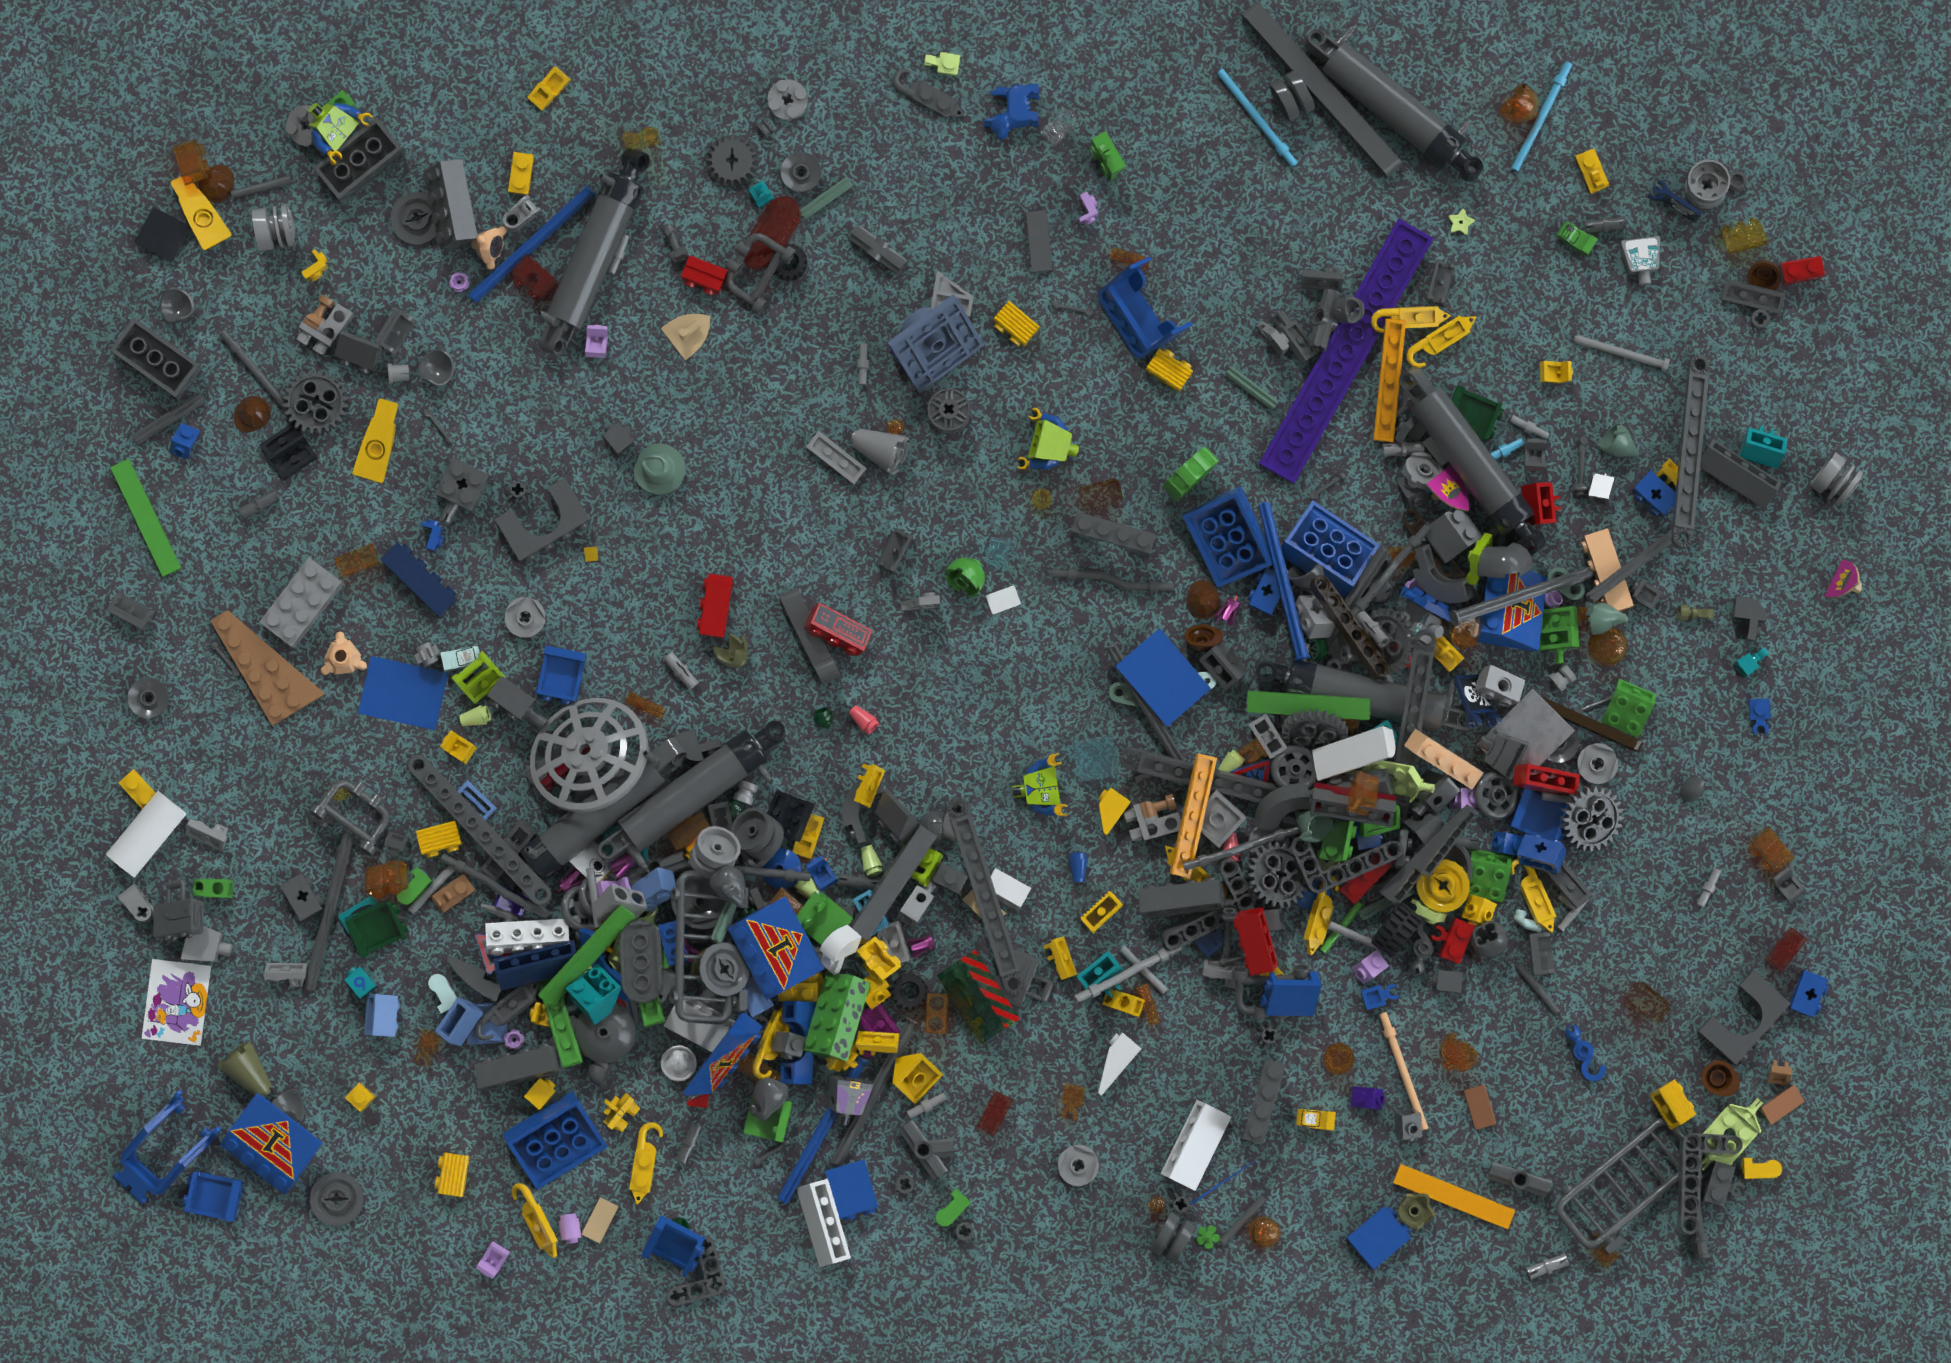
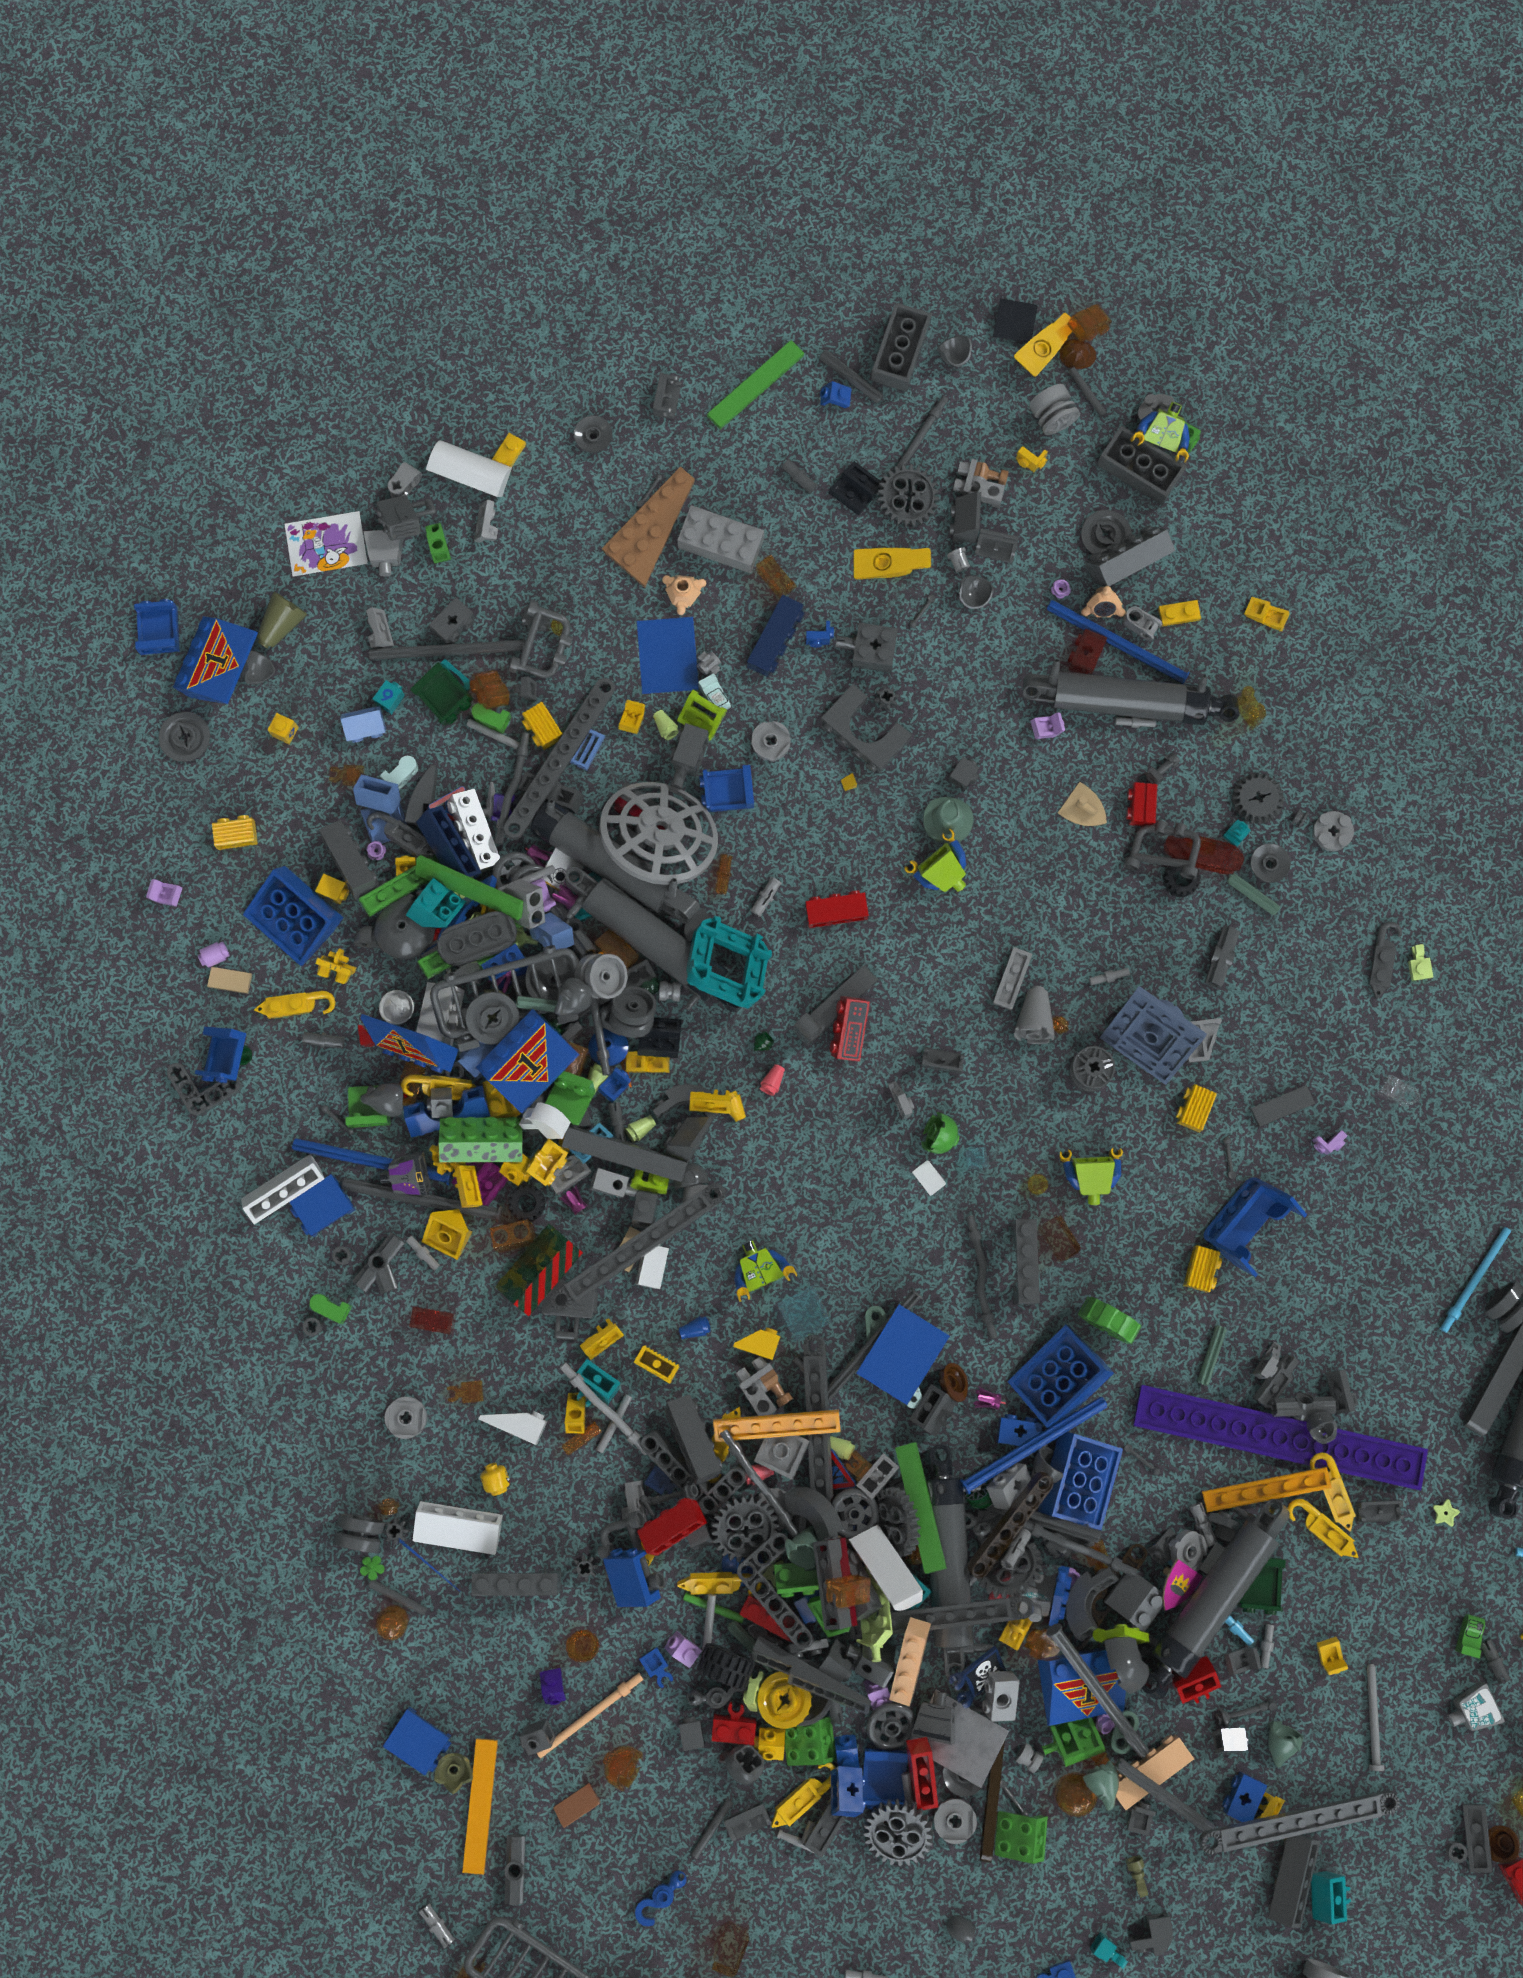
camera: 75 degrees right, 5 degrees down
(141, 1178) = (159, 553): blue piece -> none
(252, 414) = (879, 447): reddish brown piece -> none
(453, 893) = (496, 755): medium nougat plate -> none
(536, 1221) = (212, 922): yellow plate -> none
(708, 490) = (942, 868): none -> lime torso
(735, 655) = (797, 942): olive piece -> none
(744, 755) = (699, 970): none -> teal plate
(881, 761) = (737, 1110): none -> yellow cone
(1018, 109) = (1400, 1047): blue animal -> none
(1108, 156) = (1391, 1141): bright green plate -> none
(1127, 257) = (1296, 1188): clear orange axle -> none
(1161, 1096) = (495, 1479): none -> yellow head
(1203, 600) = (990, 1371): reddish brown piece -> none
(1316, 1119) = (516, 1641): yellow leg -> none
(1528, 924) = (777, 1788): light aqua arm -> none

